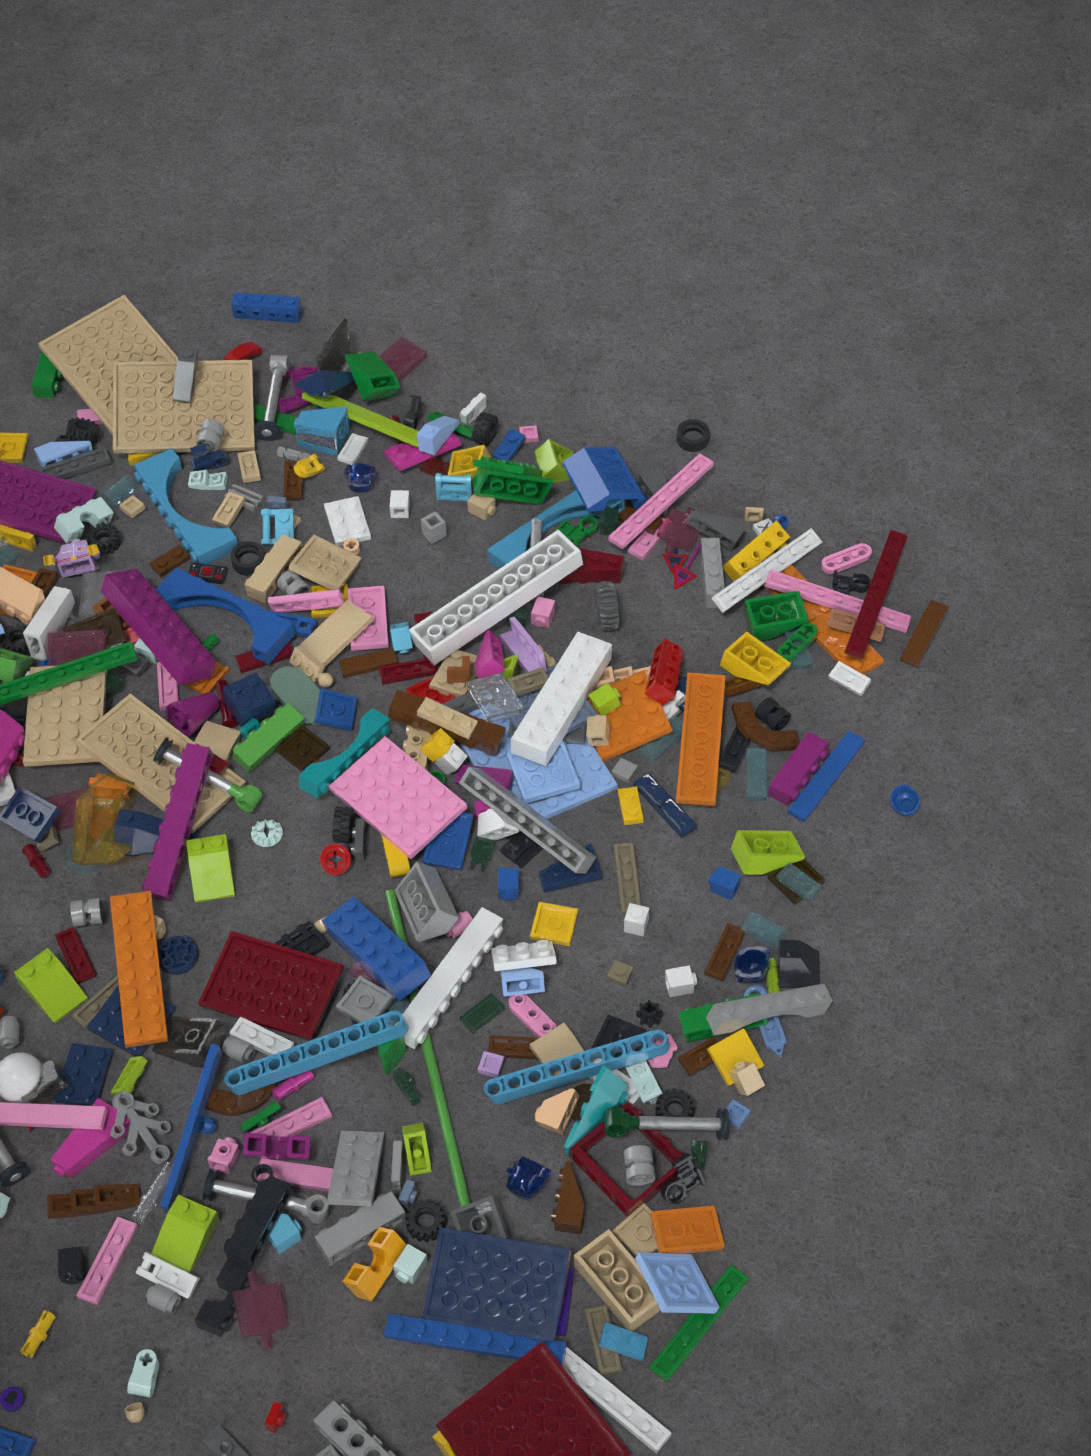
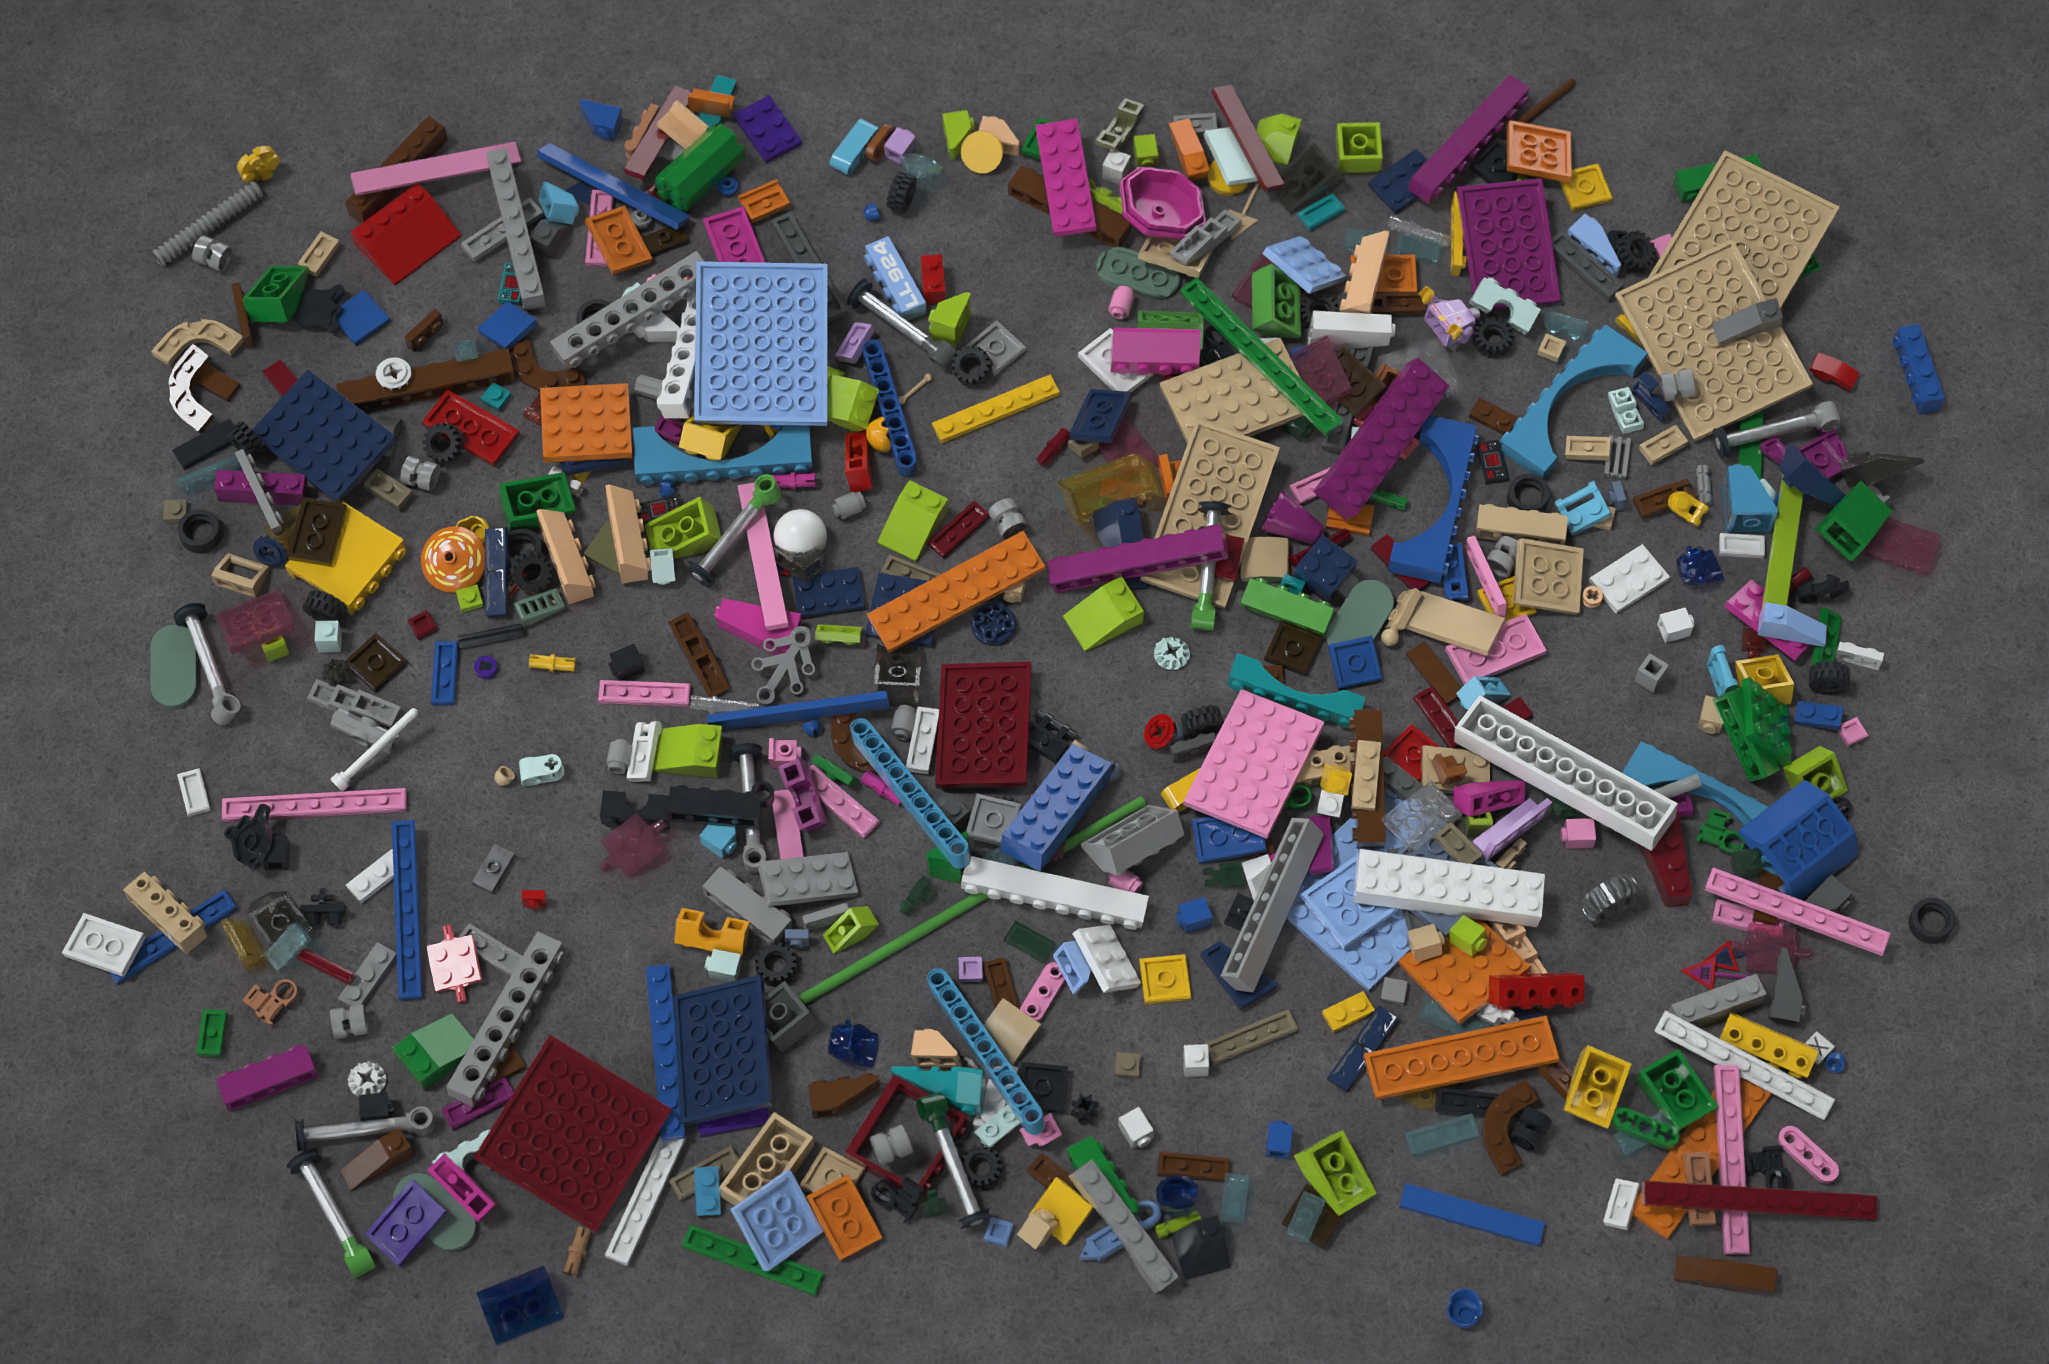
camera: 70 degrees right, 10 degrees up
(754, 514) = (1835, 1027): tan slope -> none
(798, 768) = (1466, 1179): magenta brick -> none

